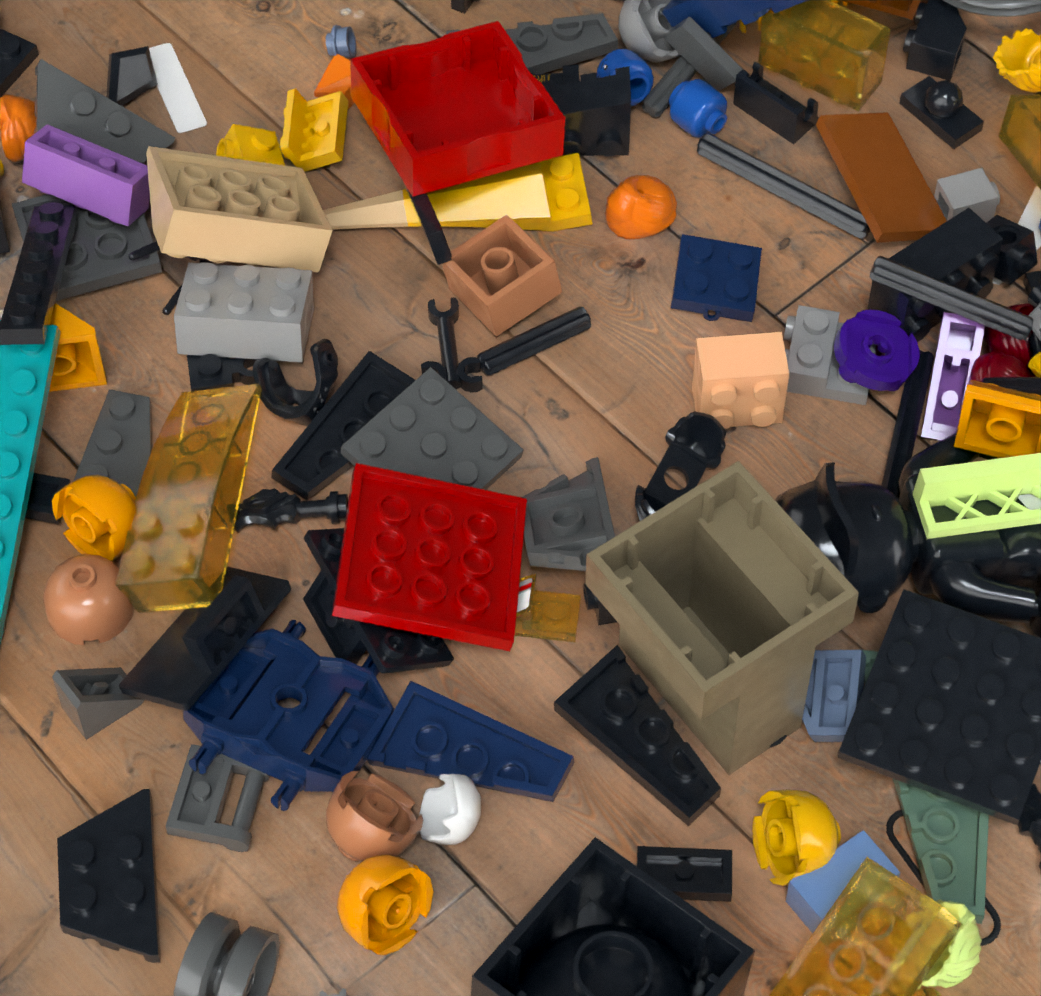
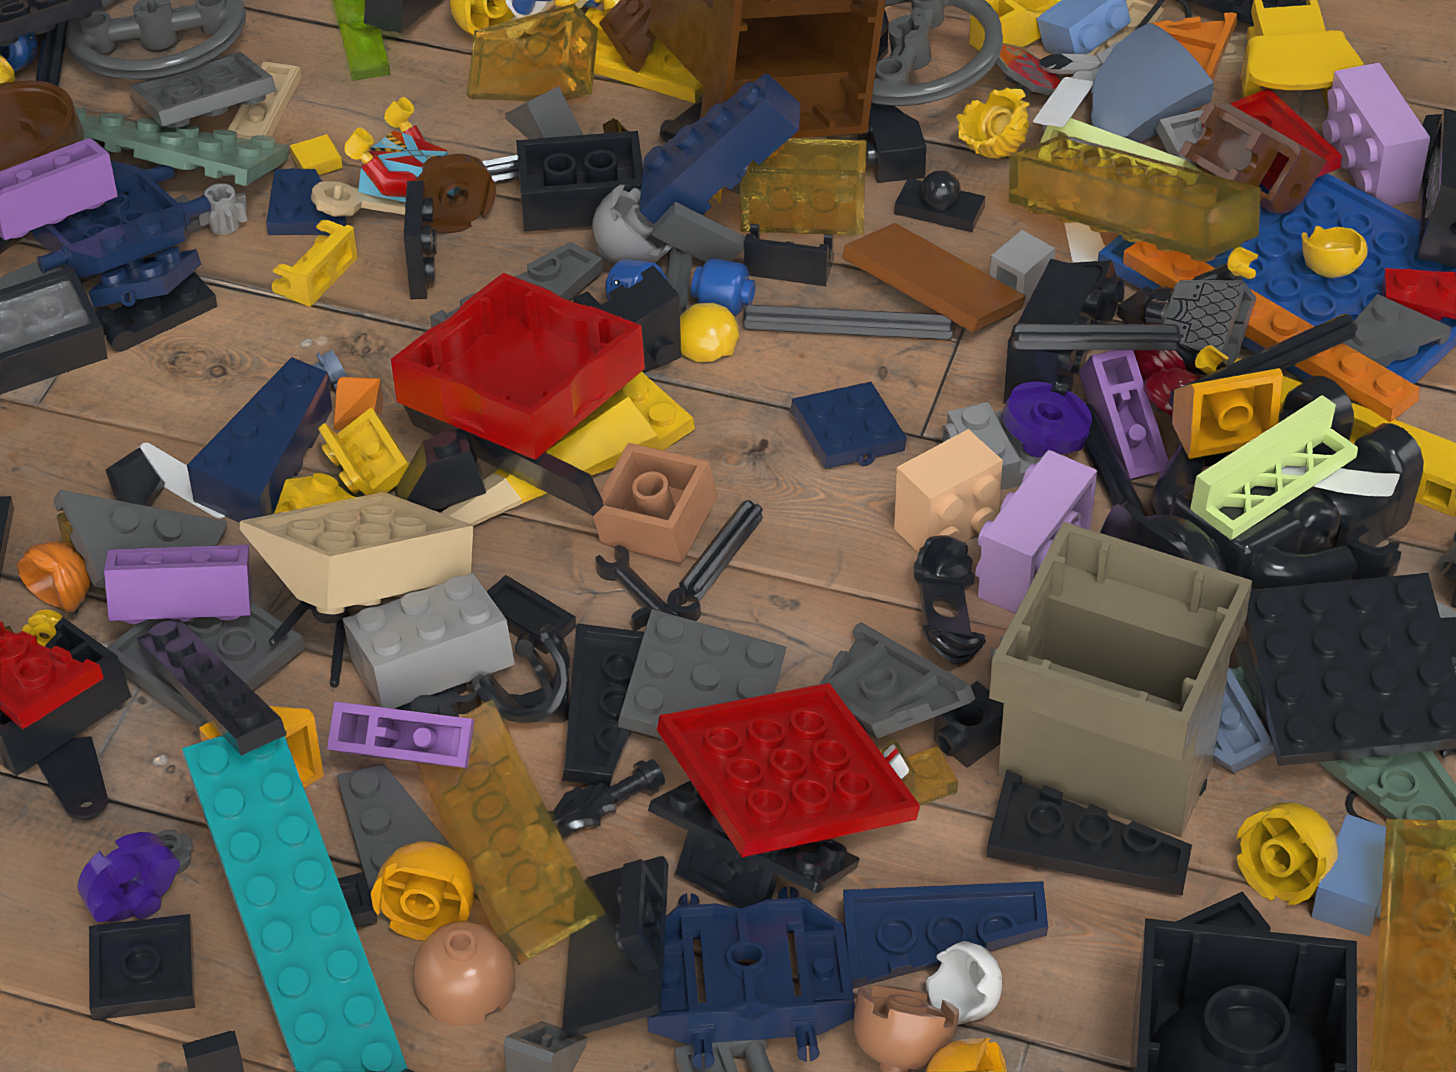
camera: 30 degrees left, 10 degrees down
(162, 378) = (400, 735): none -> medium lavender slope
(244, 84) = (262, 444): none -> dark blue wedge
(346, 322) = (529, 611): none -> black tile
(356, 174) = (442, 472): none -> black slope
(640, 207) = (733, 394): orange hair -> none
(659, 143) = (708, 332): none -> yellow hair
(795, 440) = (1027, 524): none -> lavender brick

